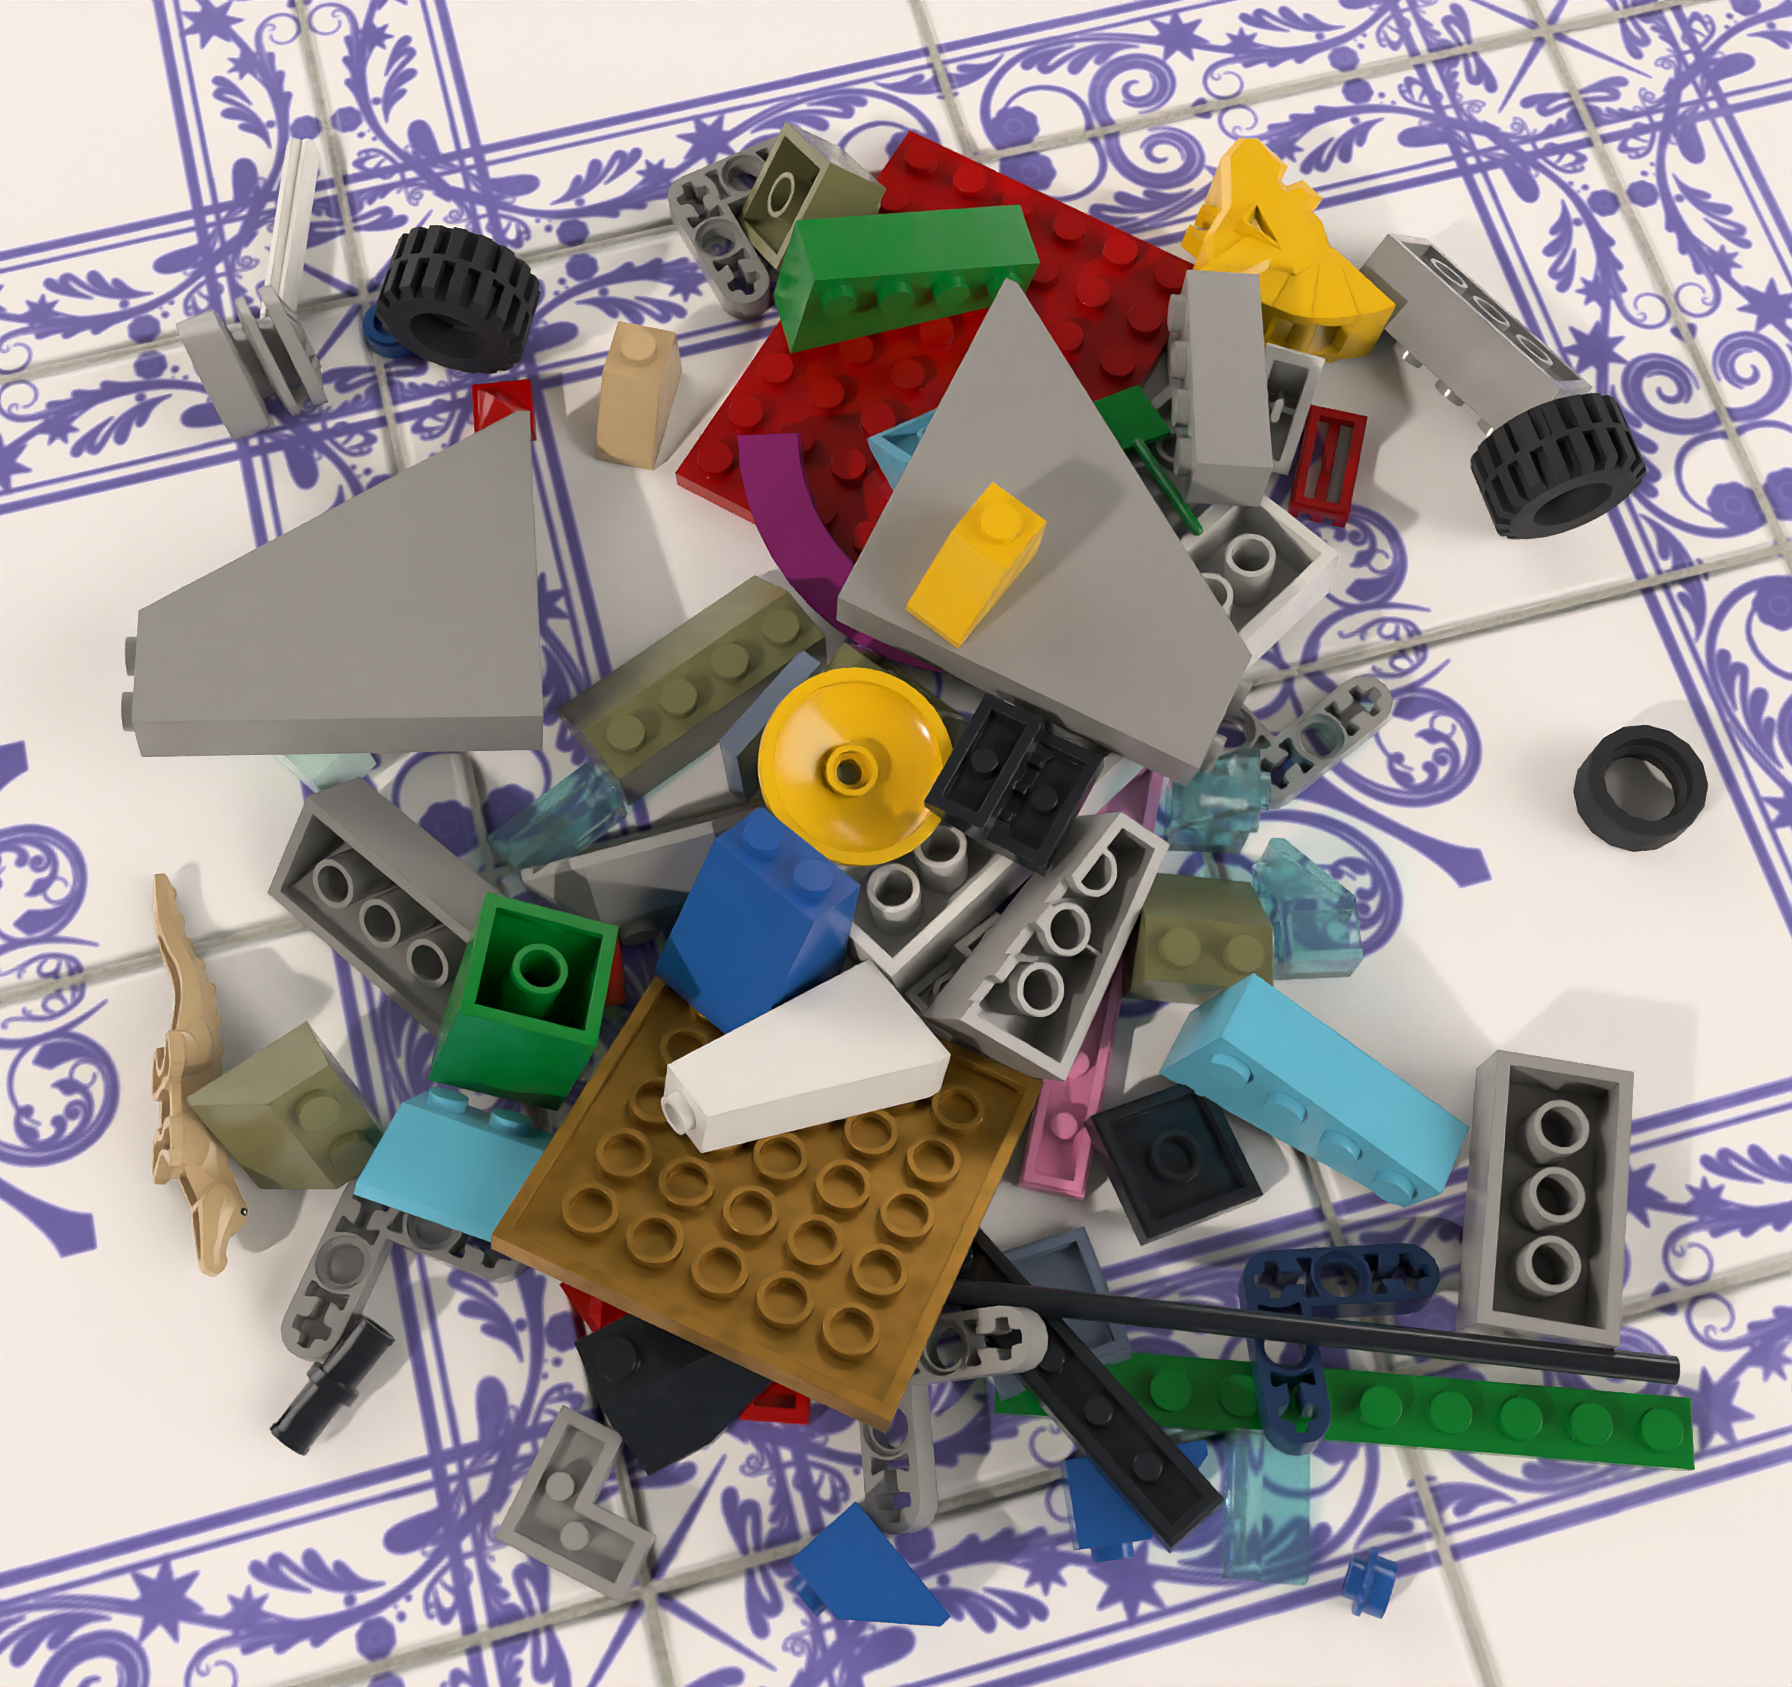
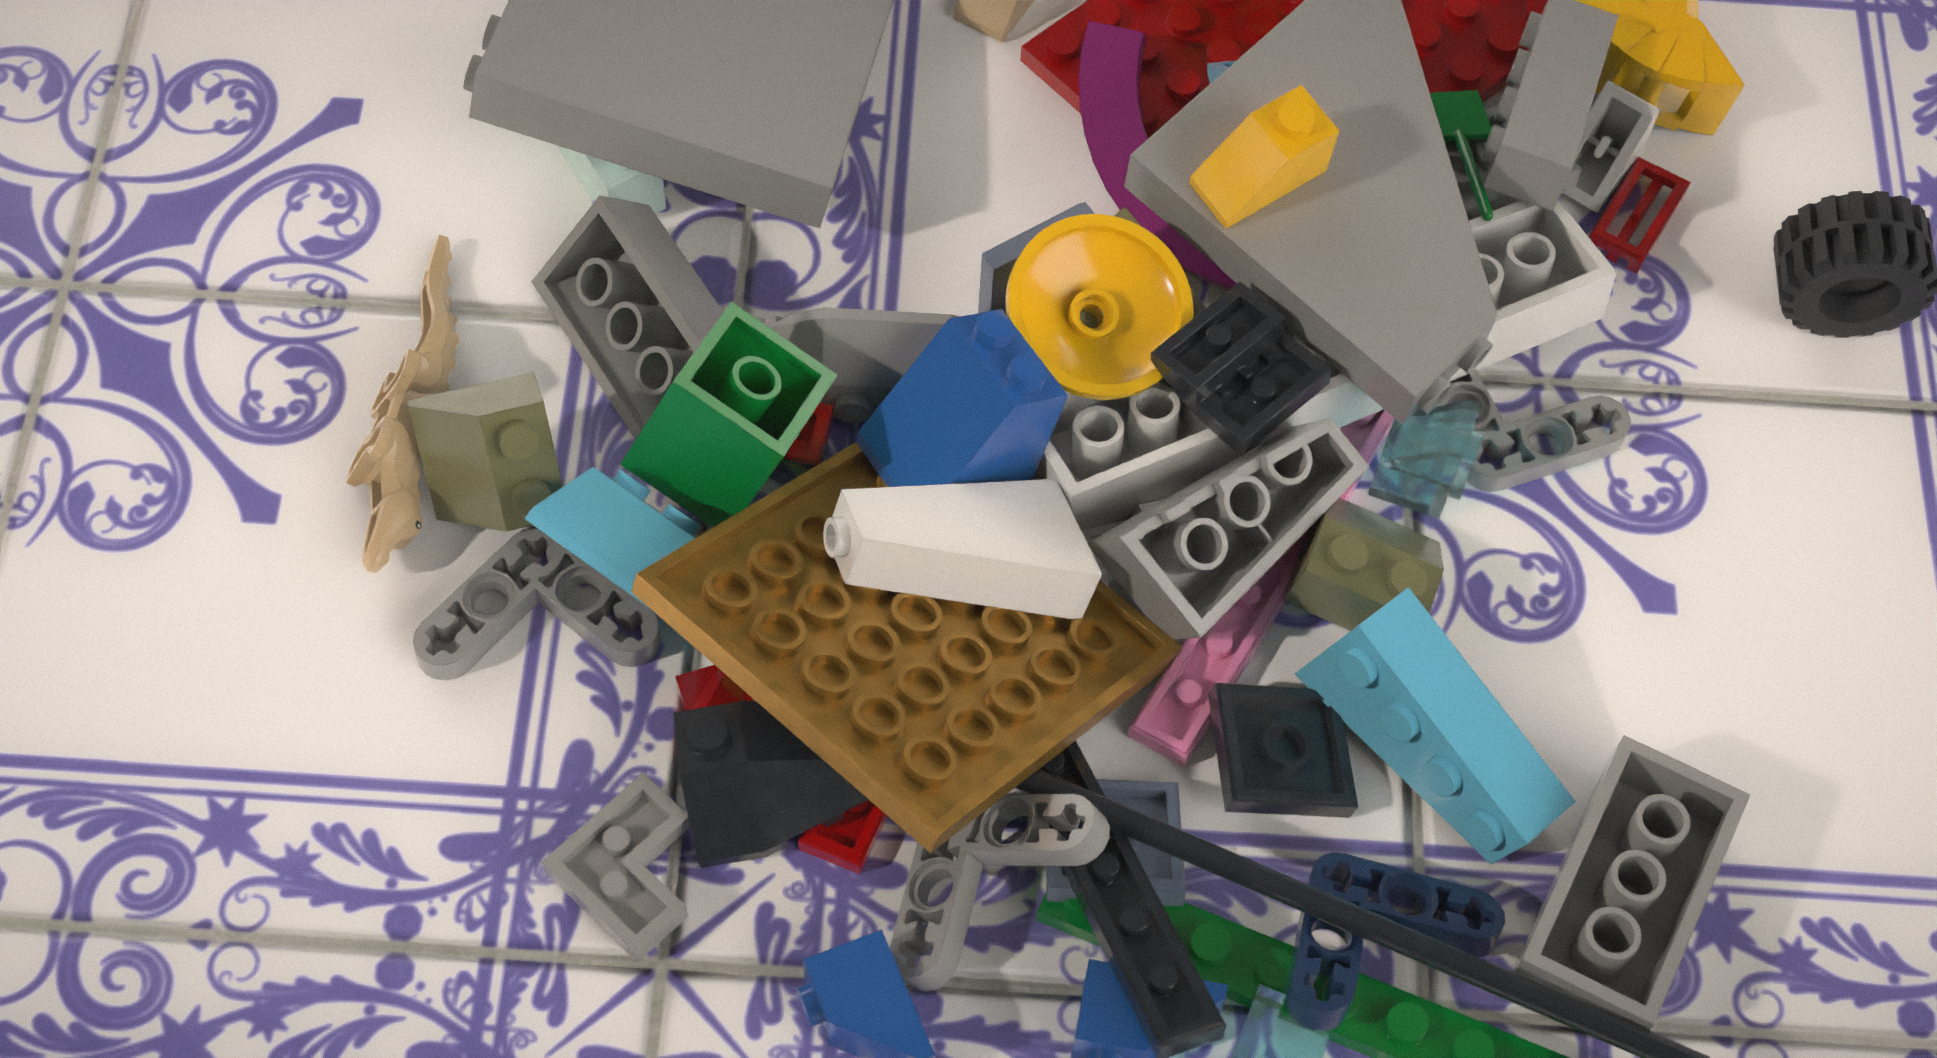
camera: 15 degrees right, 10 degrees down
(332, 1385) = (443, 693): black pin -> none
(559, 822) = (830, 286): clear light blue panel -> none
(690, 686) = (937, 234): olive slope -> none
(1310, 915) = (1486, 583): clear light blue slope -> none
(1465, 335) = (1798, 123): light grey slope -> none
(1663, 751) = (1867, 537): black tyre -> none

